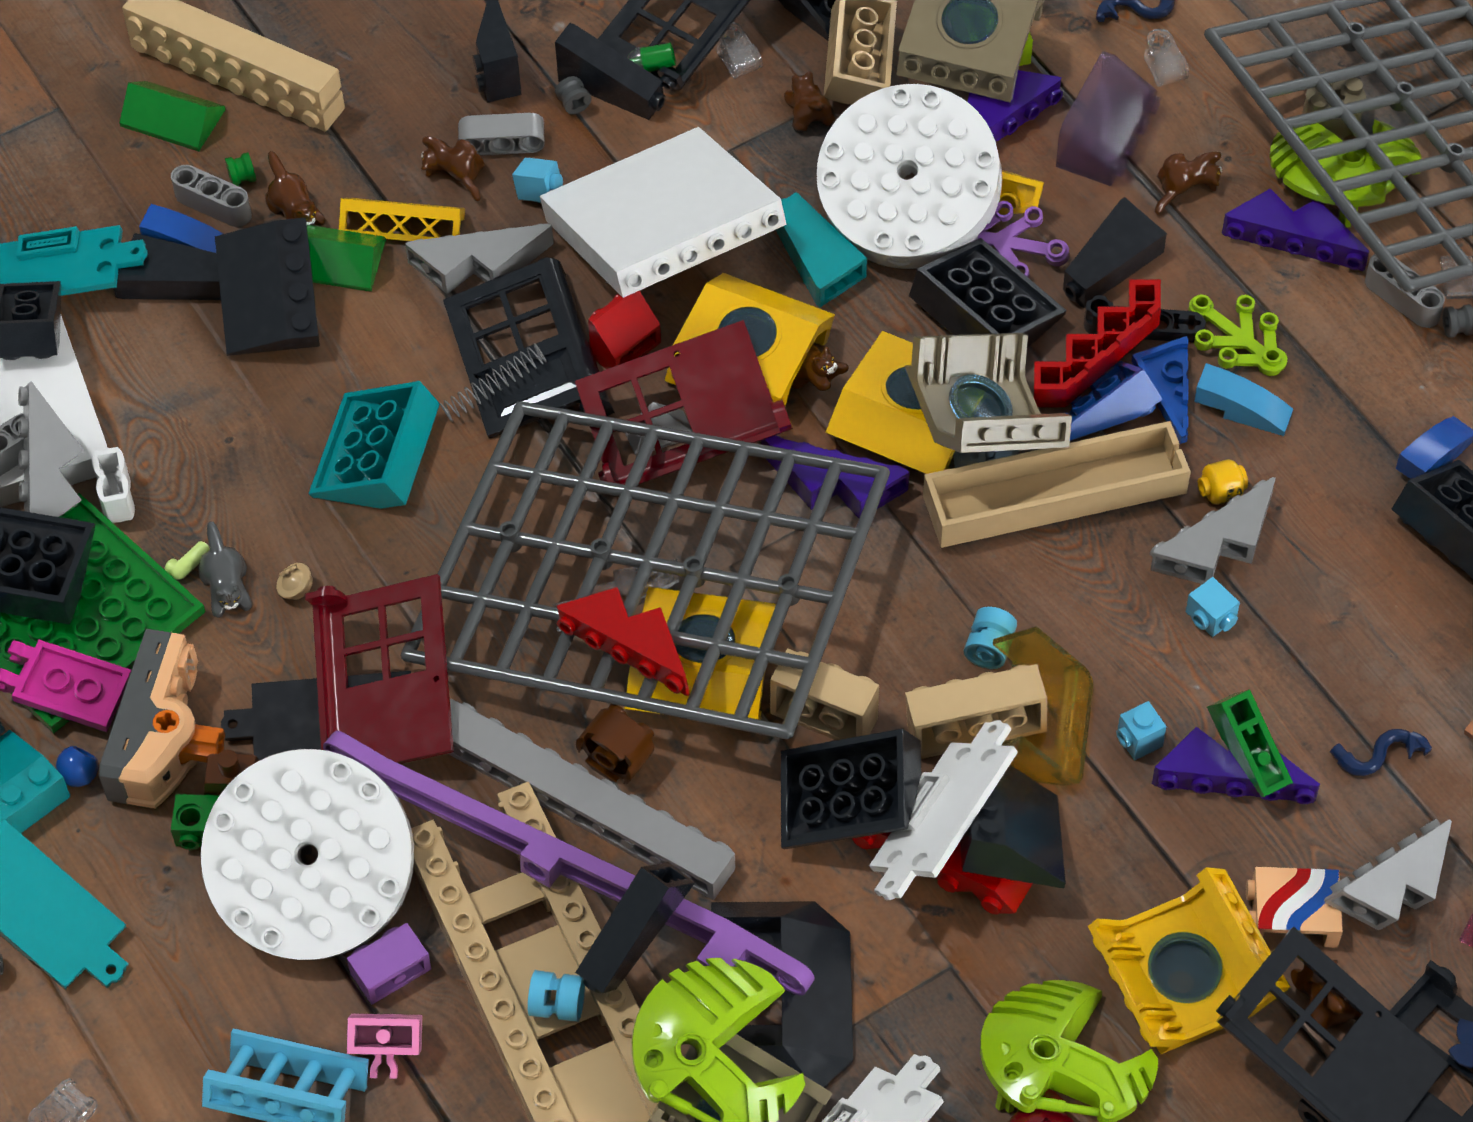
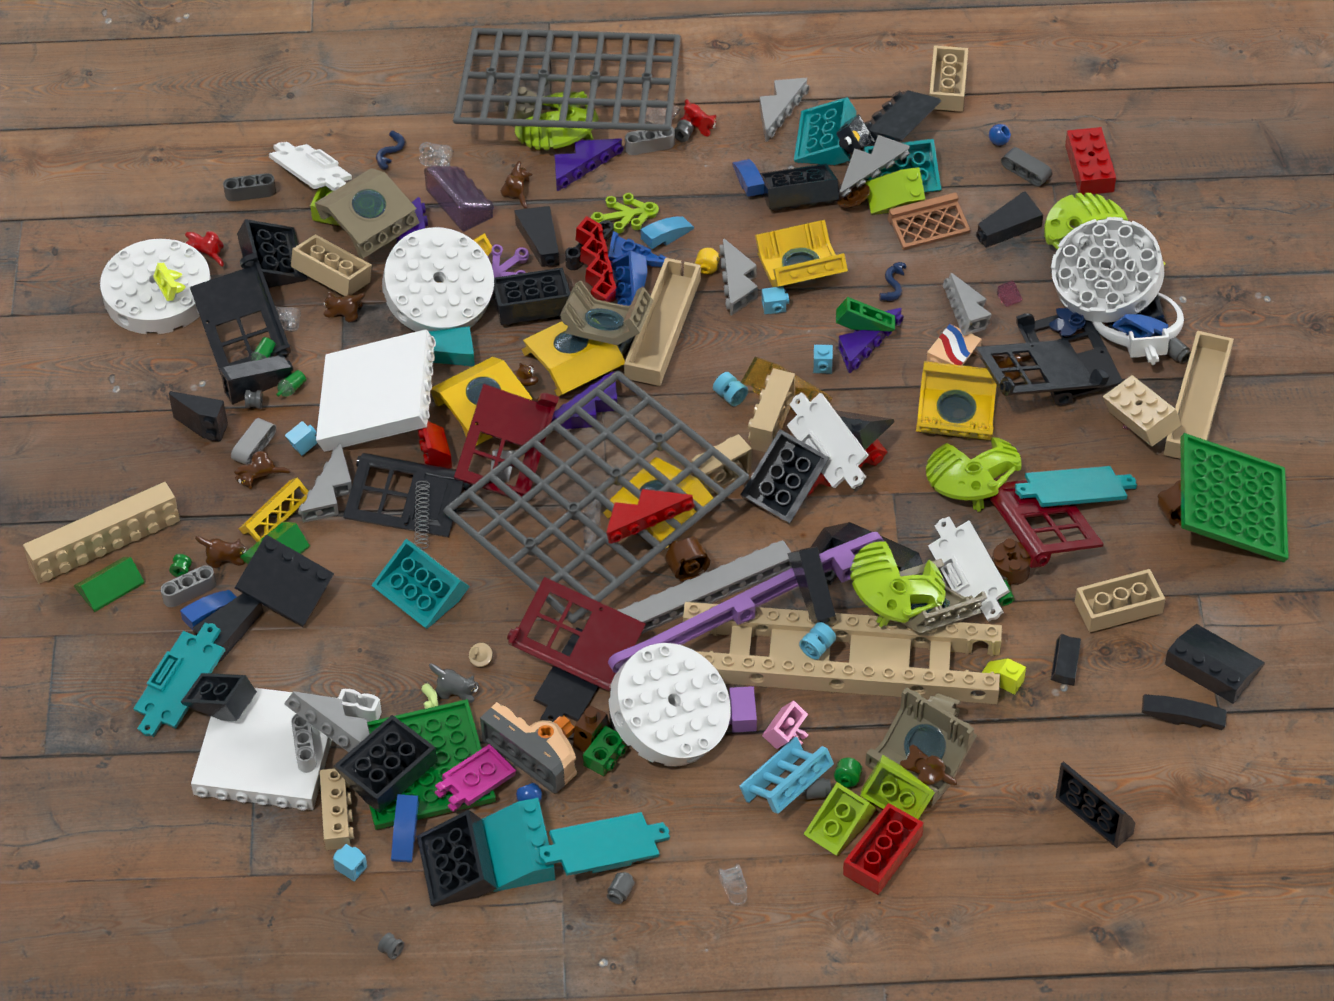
camera: 60 degrees left, 5 degrees down
(627, 120) = (290, 384): none -> piece
(1326, 595) = (798, 254): none -> yellow panel

